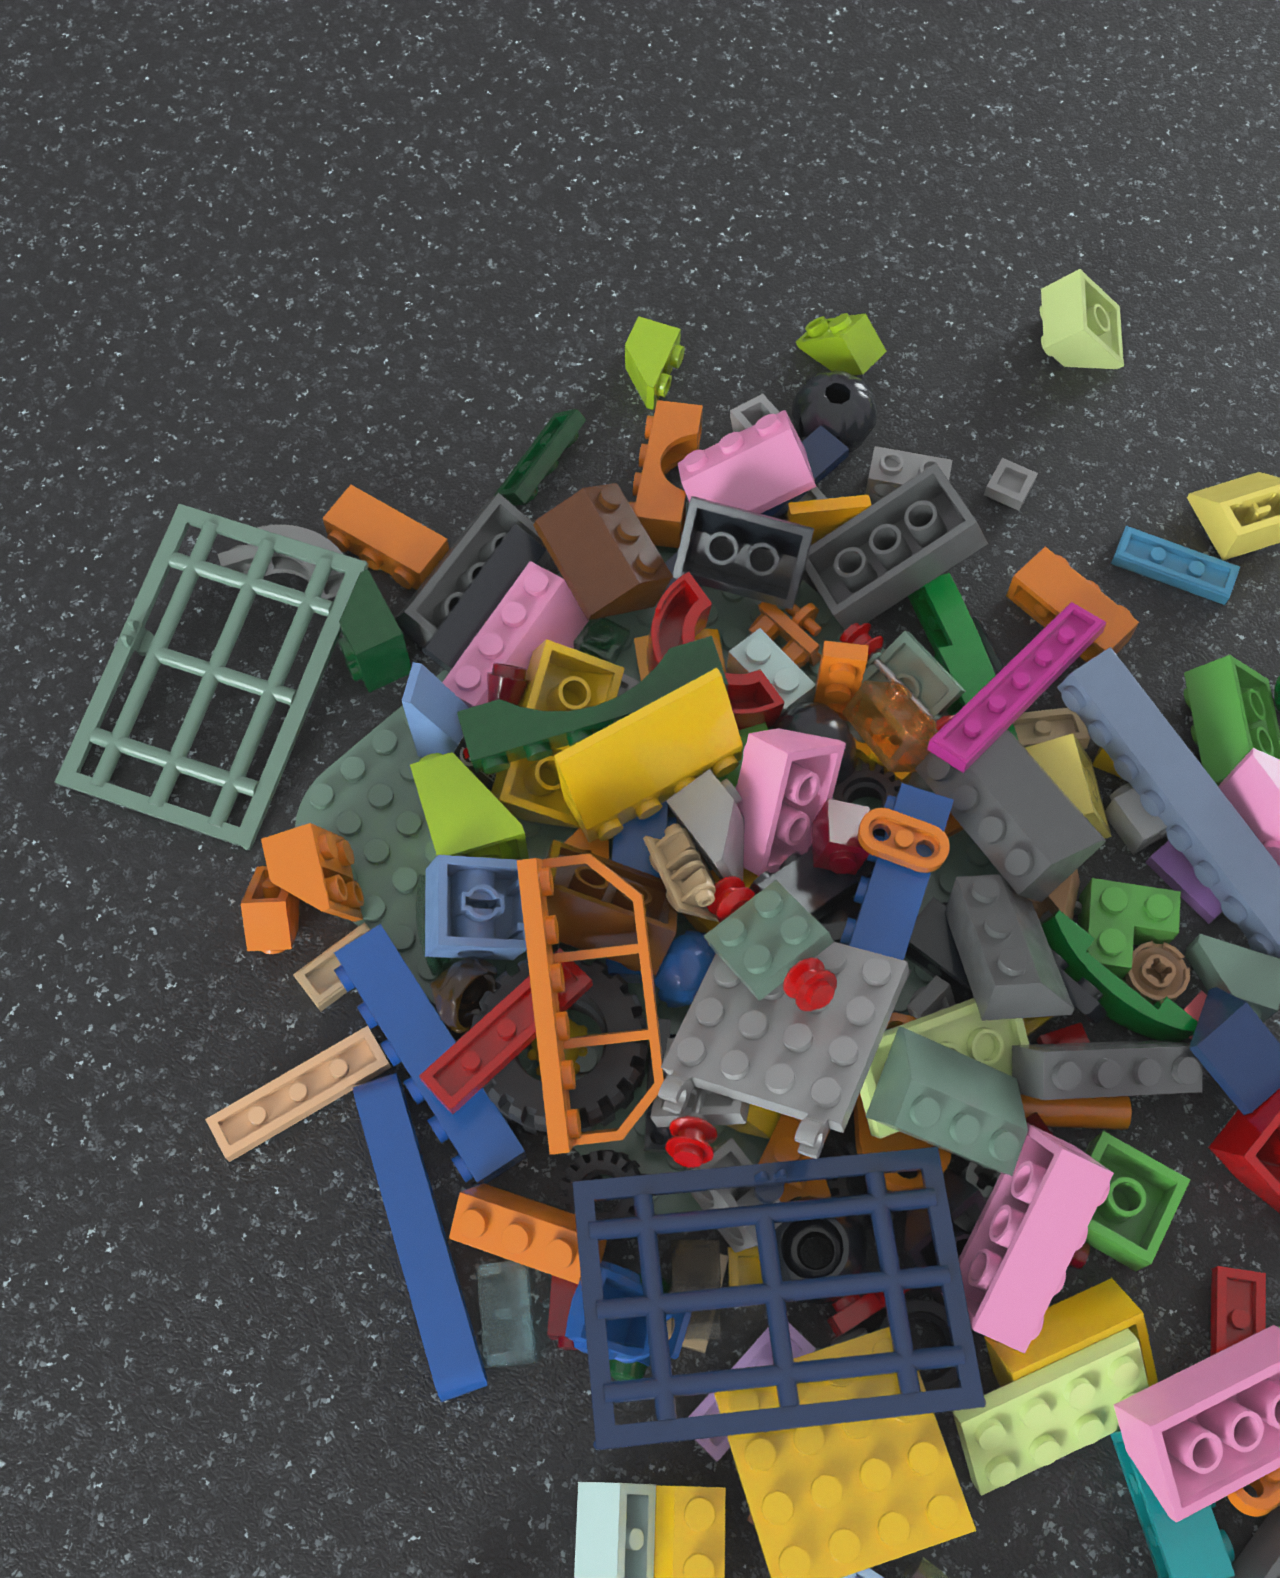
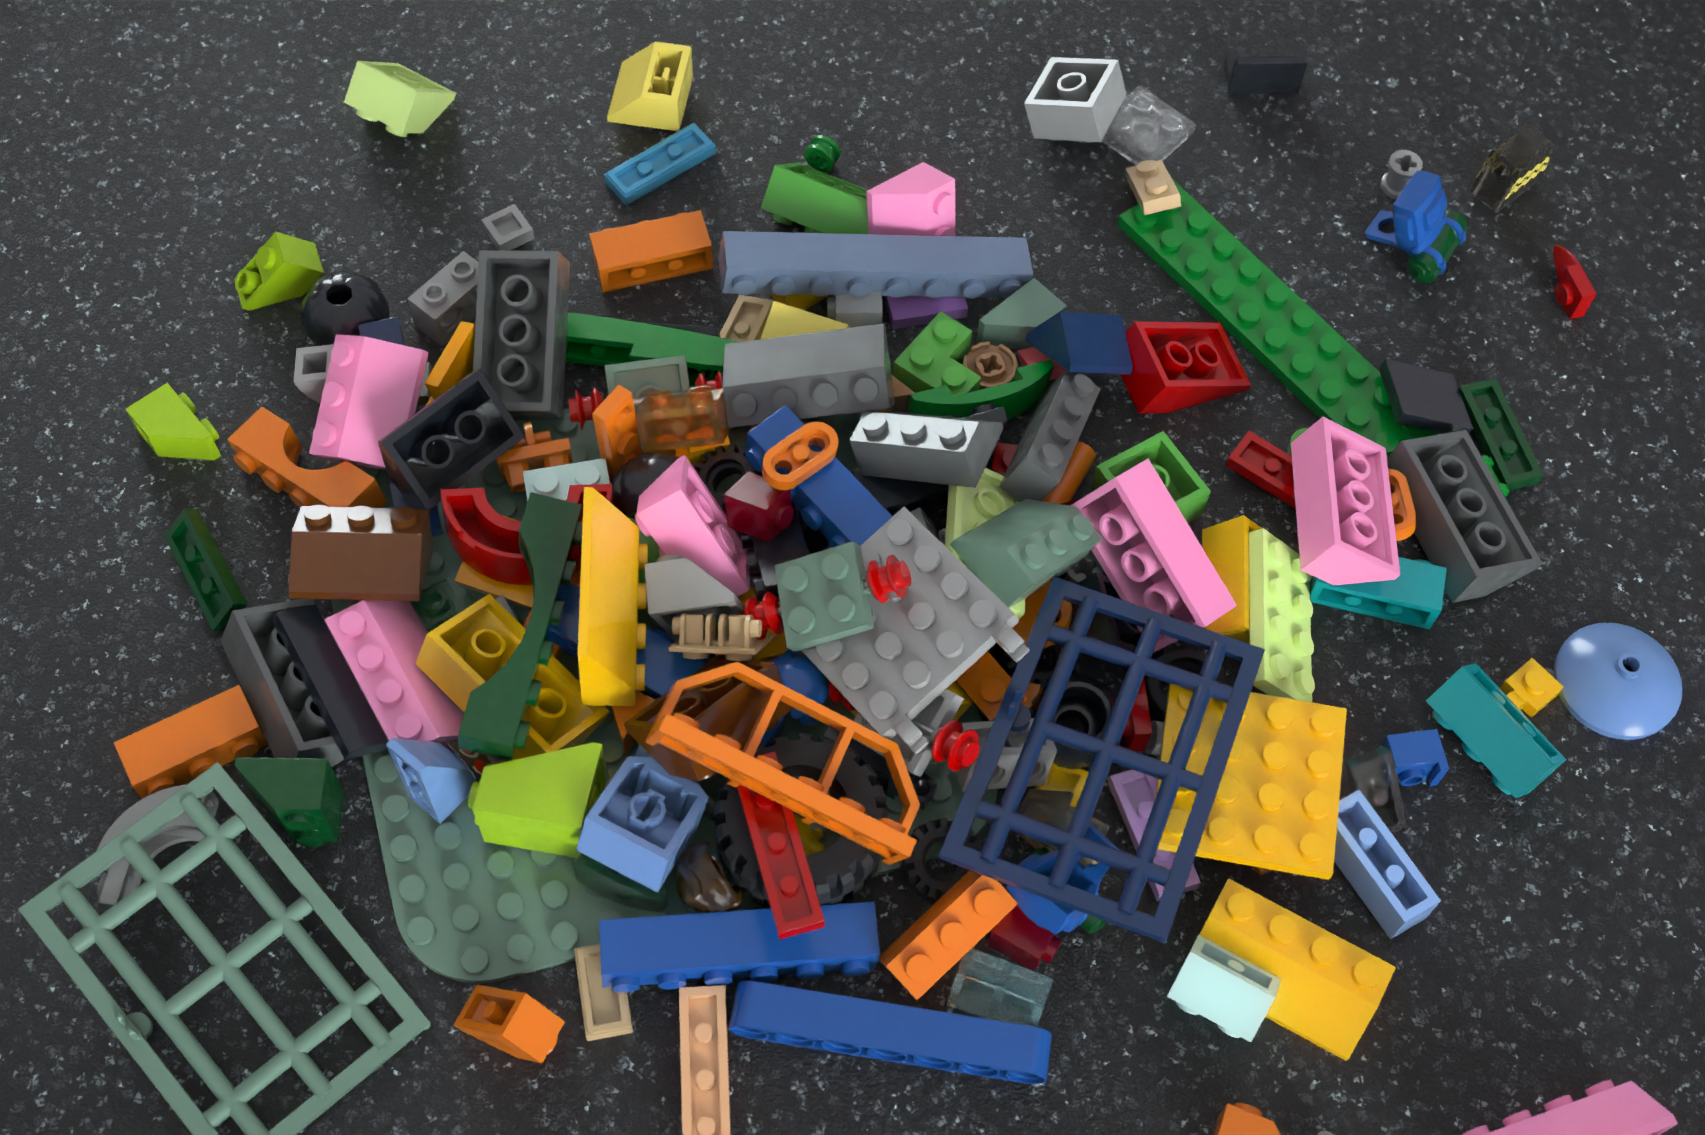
camera: 65 degrees left, 5 degrees down
(315, 869) = (508, 957): orange slope -> none
(506, 683) = (442, 700): dark red cone -> none
(1015, 687) = (709, 316): dark pink tile -> none

